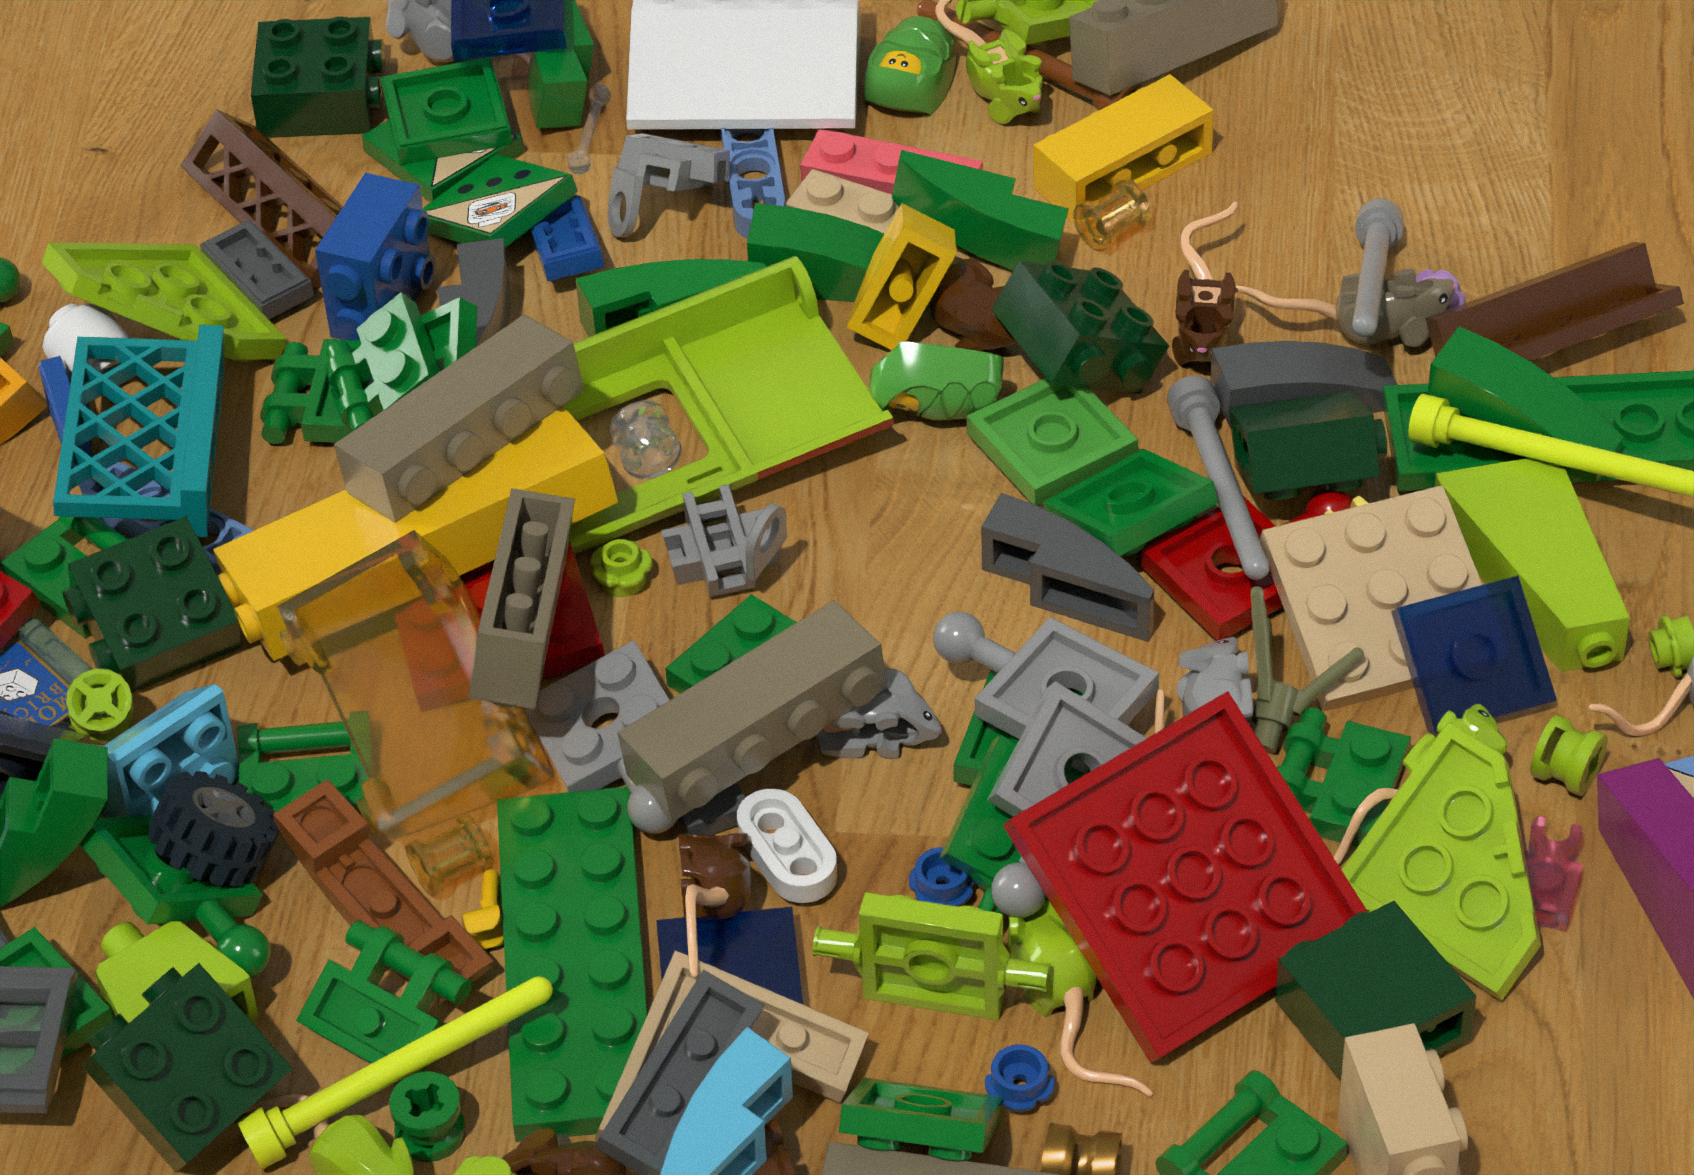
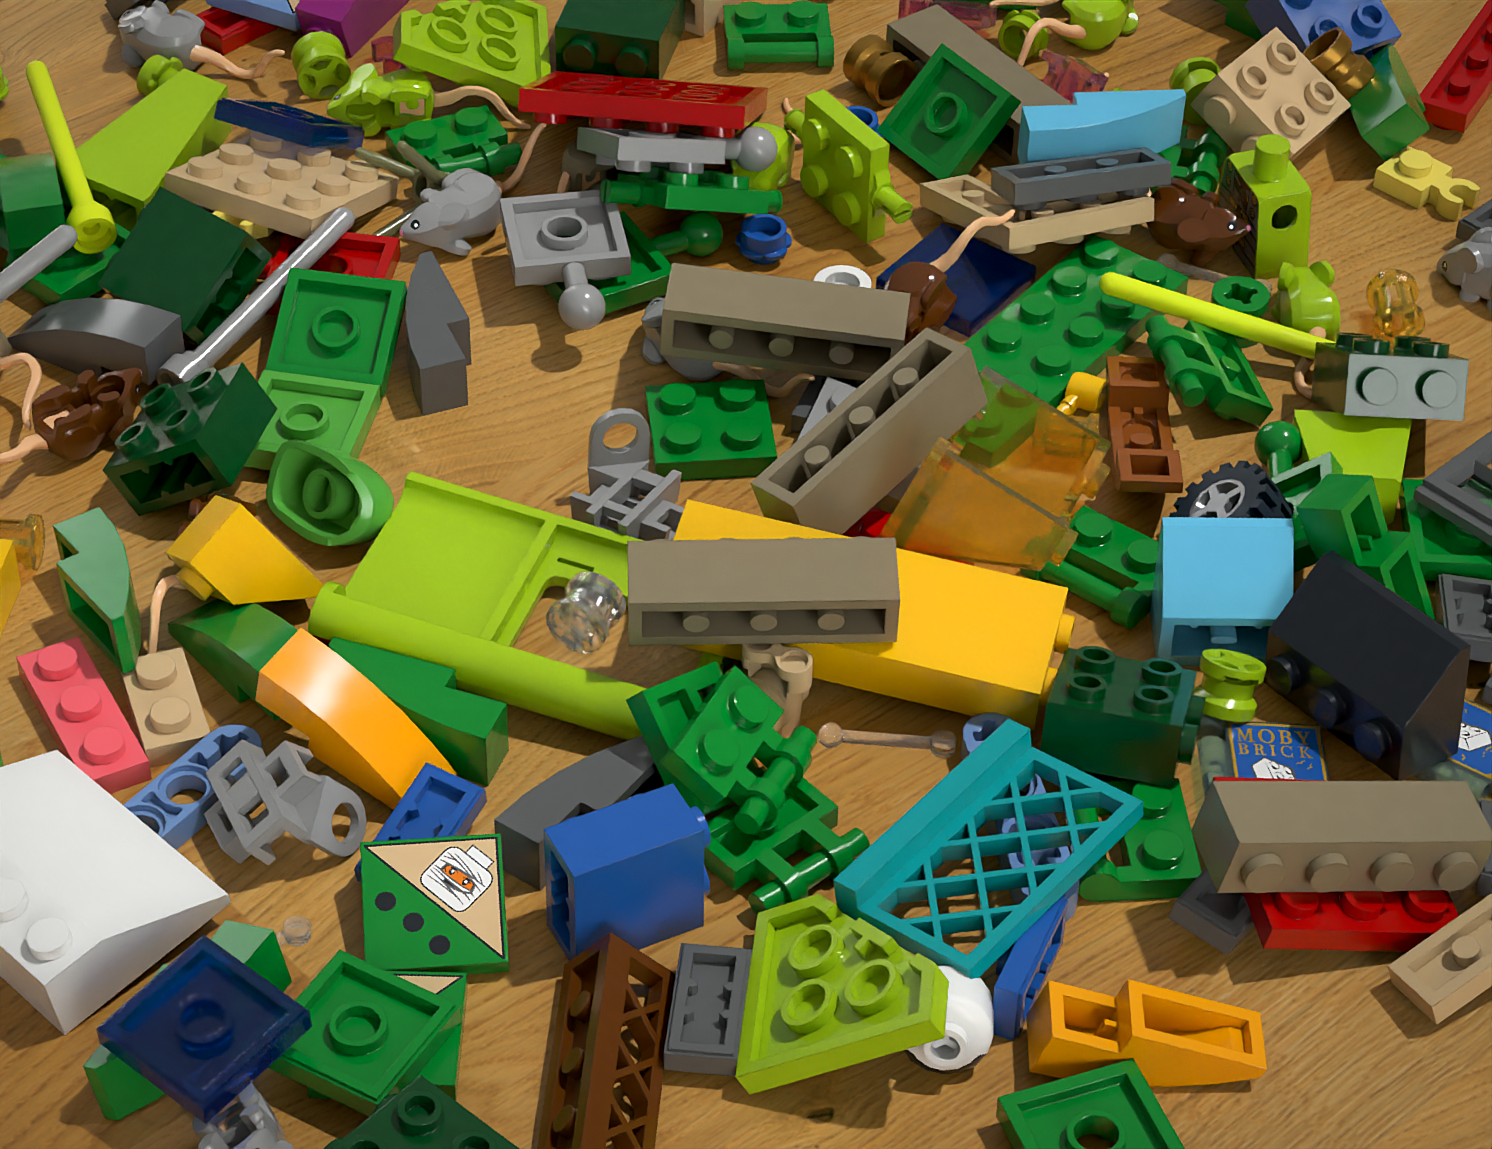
camera: 140 degrees left, 5 degrees down
(685, 219) = (347, 718): none -> light orange slope

